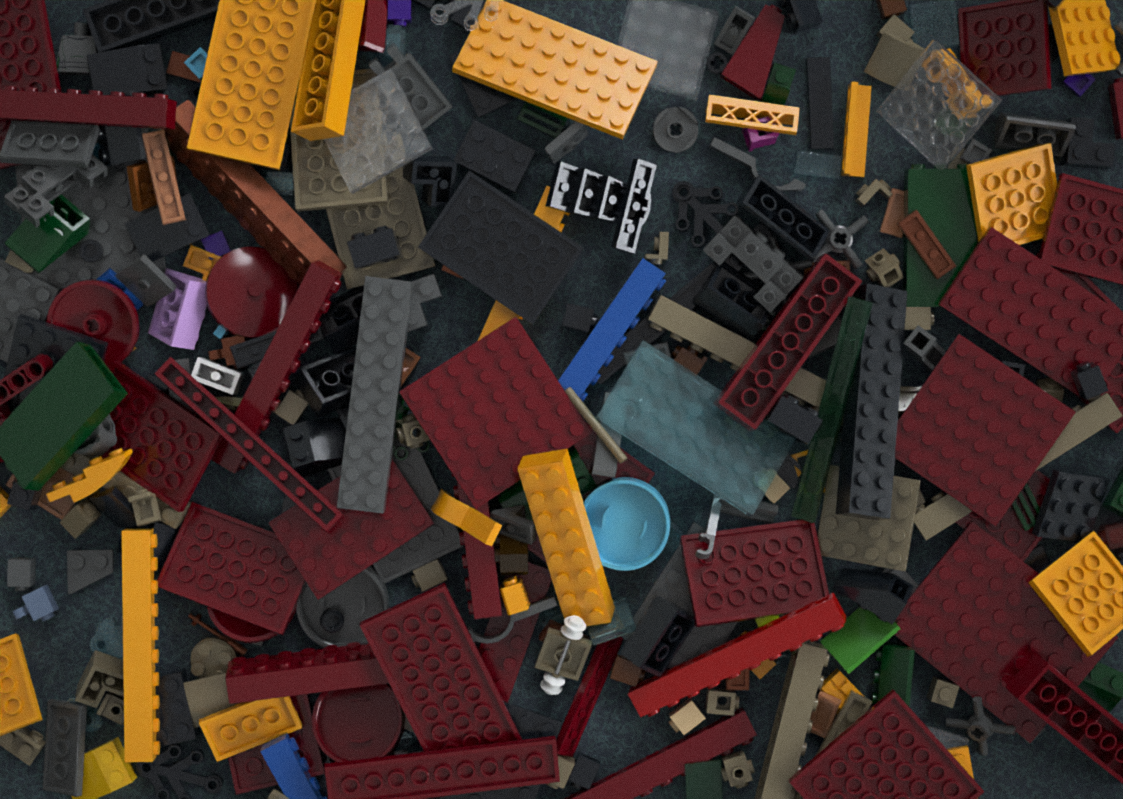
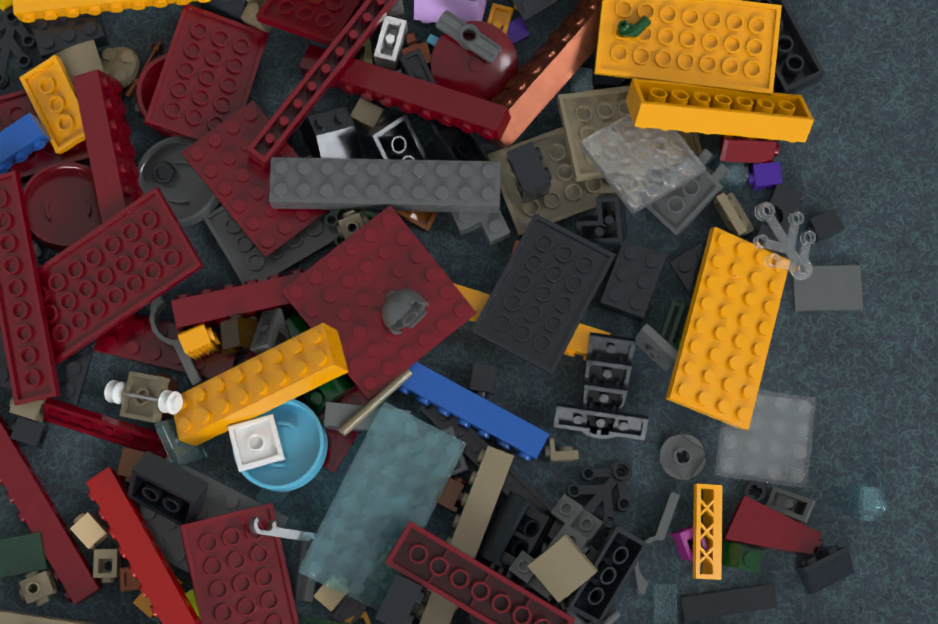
camera: 85 degrees right, 10 degrees down
(237, 282) = (480, 45): none -> dark grey piece
(240, 123) = (633, 30): none -> dark green arm
(429, 575) = (215, 261): dark tan brick -> none
(437, 46) = (733, 215): none -> dark tan bracket
(466, 518) = (270, 283): light orange piece -> none
(509, 389) = (403, 309): none -> dark grey cylinder
(621, 546) = (256, 443): none -> white tile
(777, 260) = (562, 568): none -> dark tan slope

